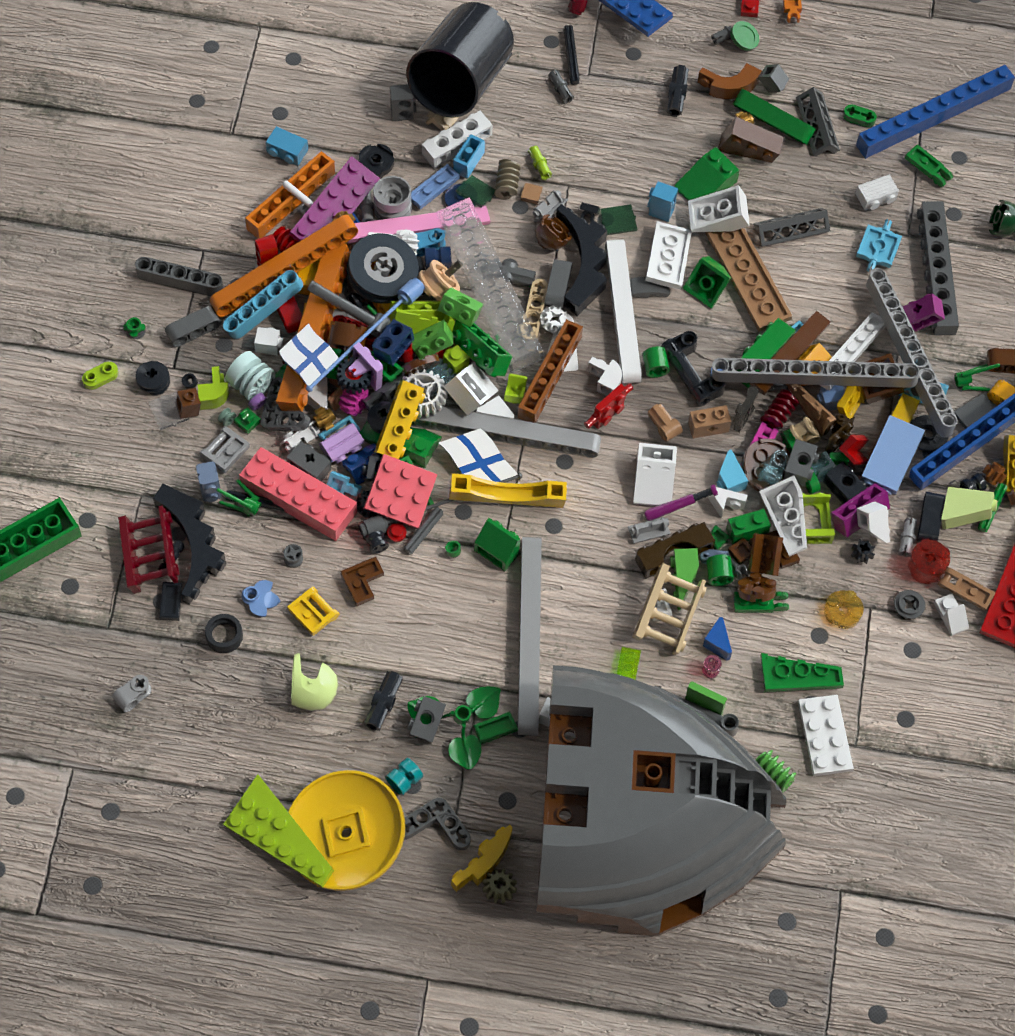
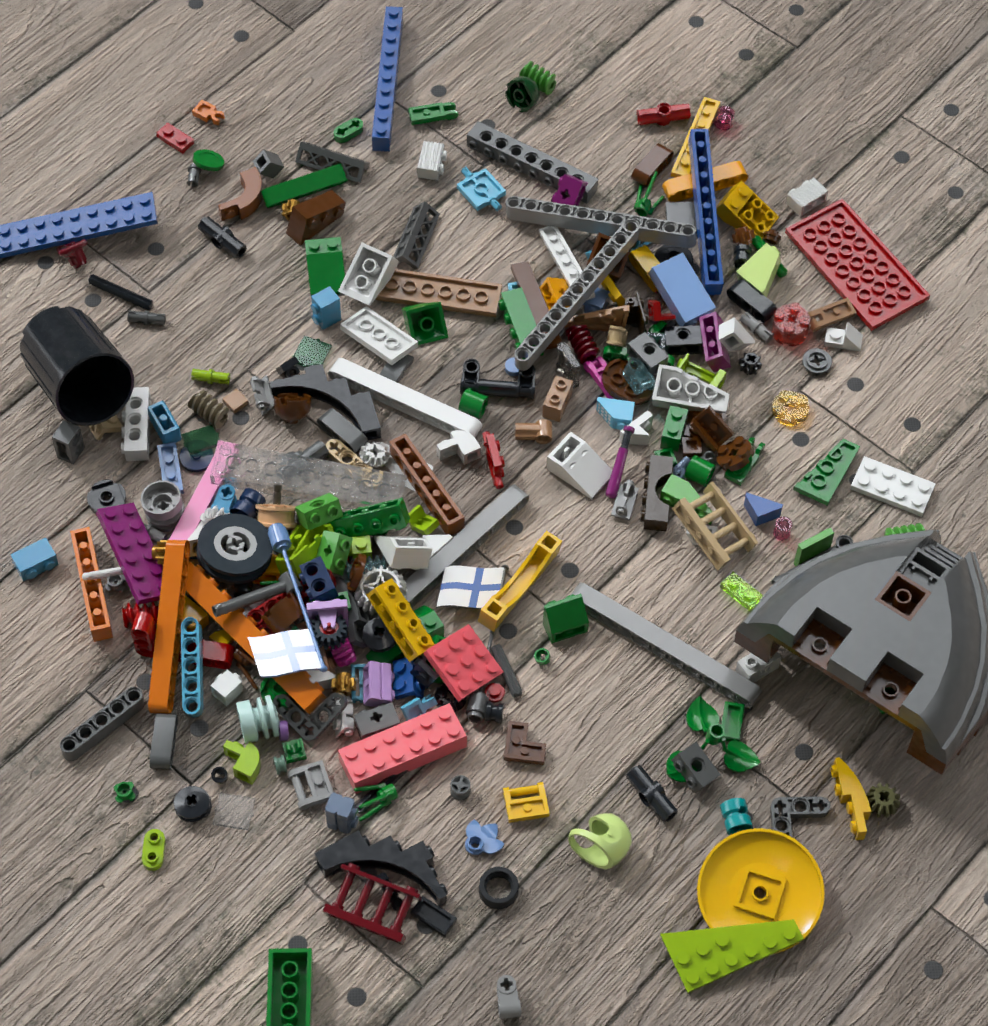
camera: 55 degrees left, 5 degrees down
(187, 403) = (244, 787): reddish brown brick -> none

